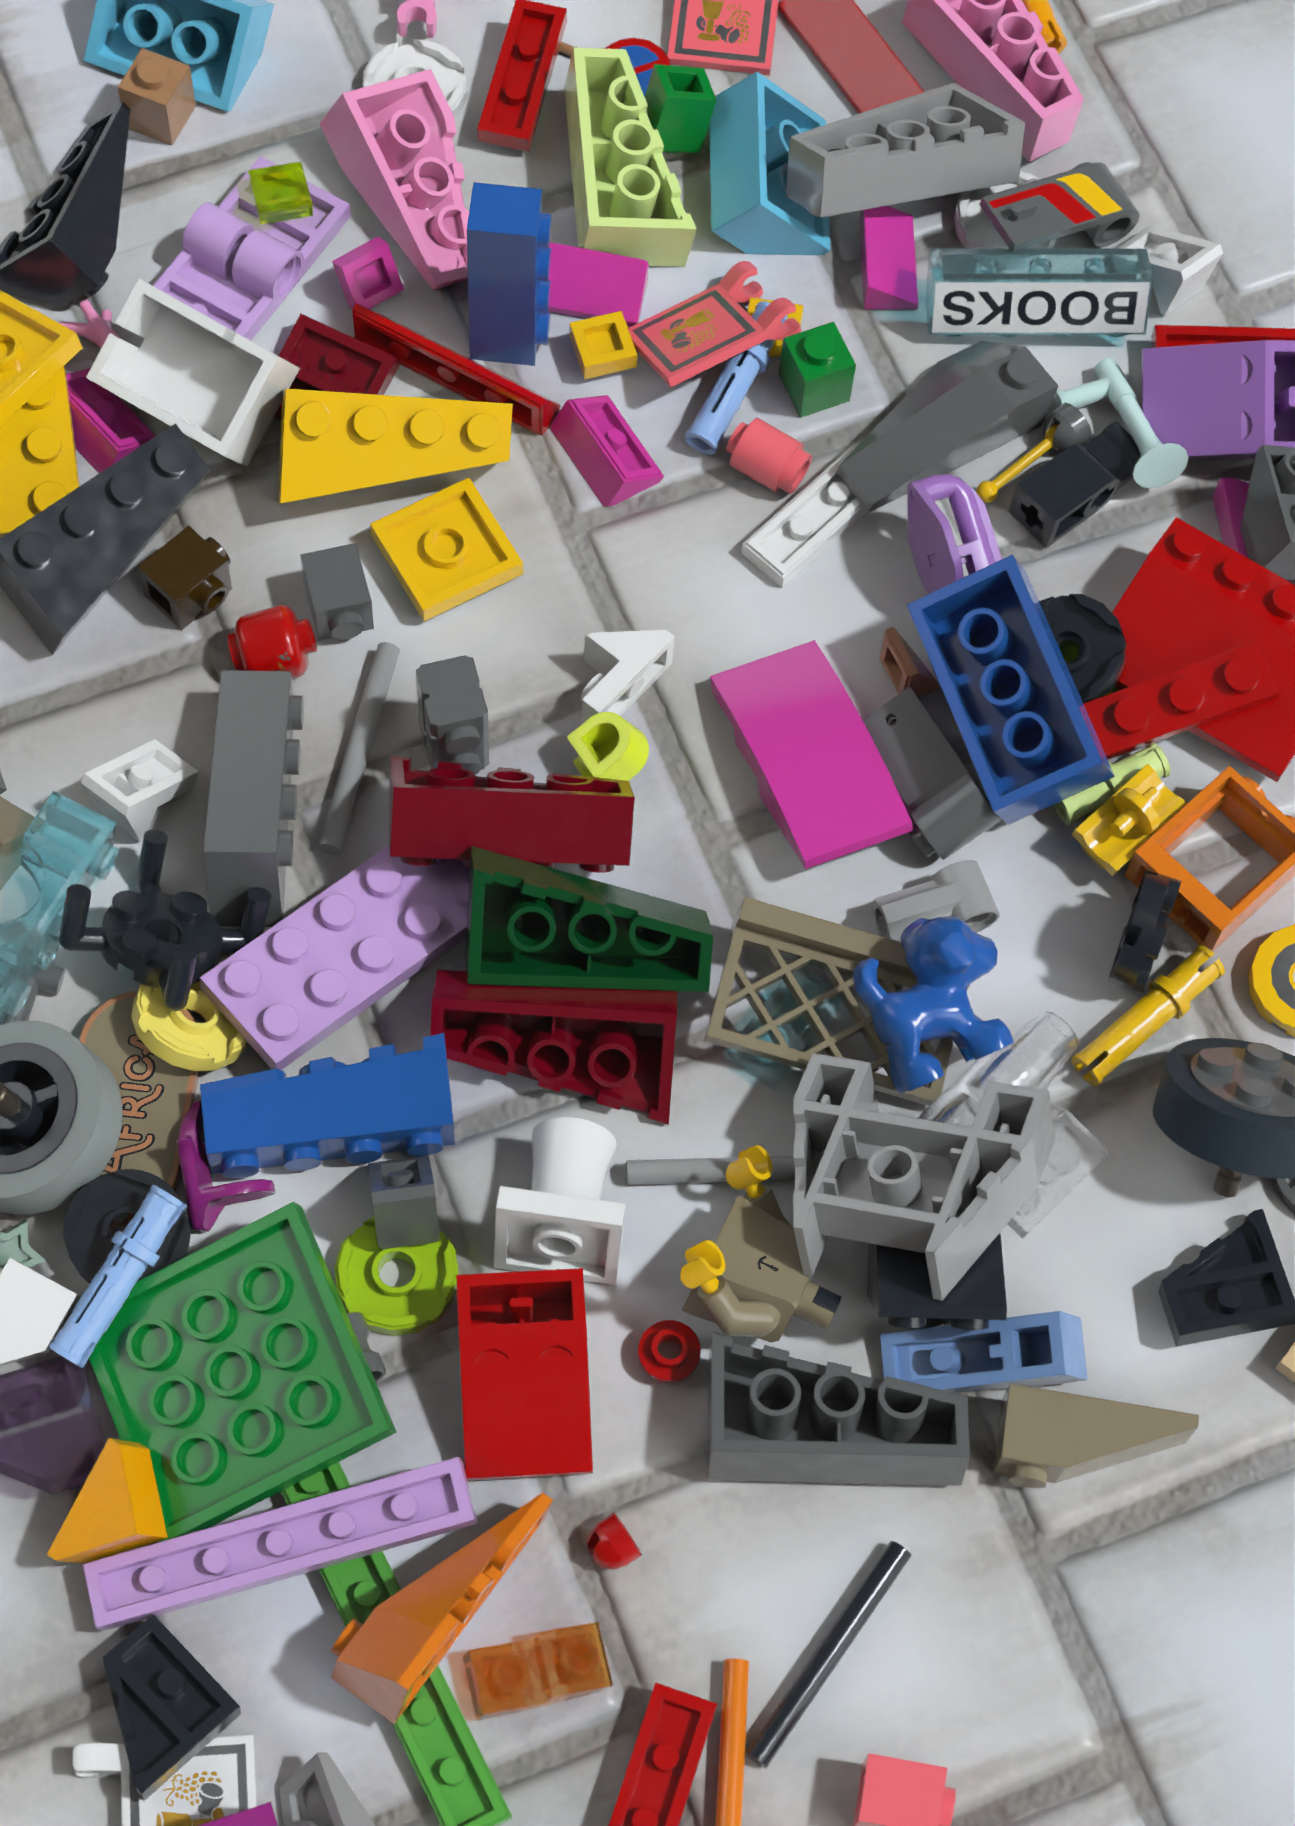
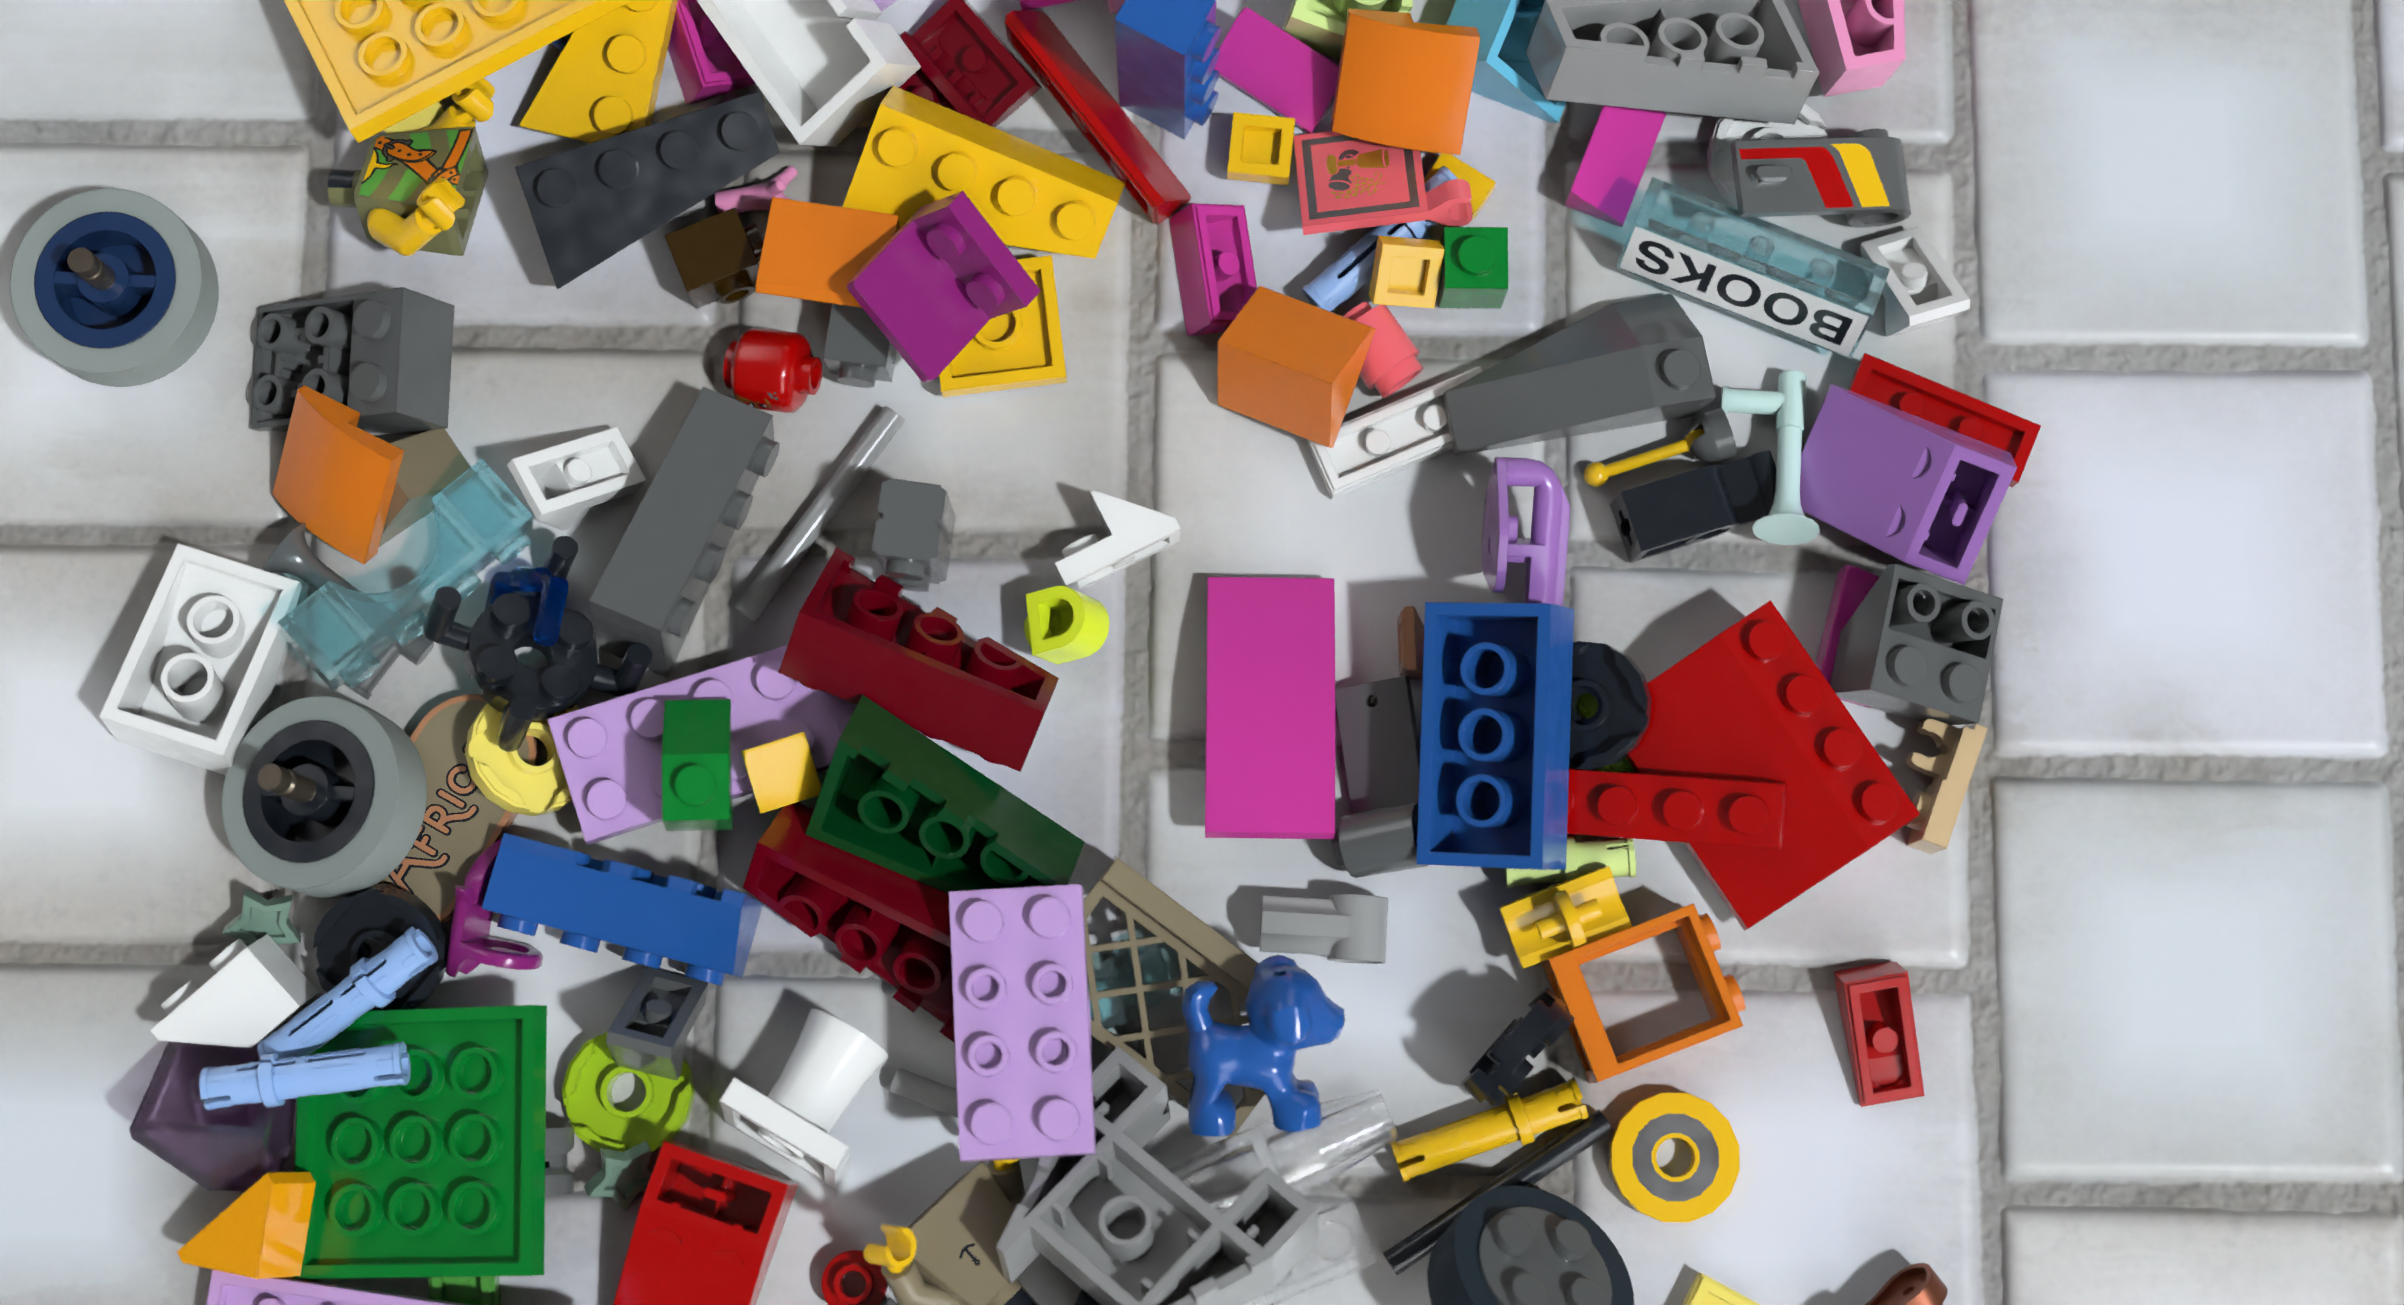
camera: 25 degrees right, 15 degrees up
(107, 1346) = (292, 1077): none -> light blue pin
(136, 878) = (552, 601): none -> clear blue piece
(208, 521) = (755, 196): none -> bright pink bar
(286, 523) = (818, 249): none -> orange slope
(355, 961) = (697, 765): none -> green slope
(397, 506) = (940, 283): none -> magenta bracket
(424, 940) = (781, 772): none -> yellow slope
(425, 1338) = (622, 1174): none -> sand green piece
(701, 243) = (1404, 81): none -> orange slope
(706, 489) = (1291, 365): none -> orange slope
(728, 1050) = (1022, 1023): none -> lavender plate
(766, 386) = (1406, 272): none -> yellow plate
(1203, 1026) = (1522, 1174): none -> black bar

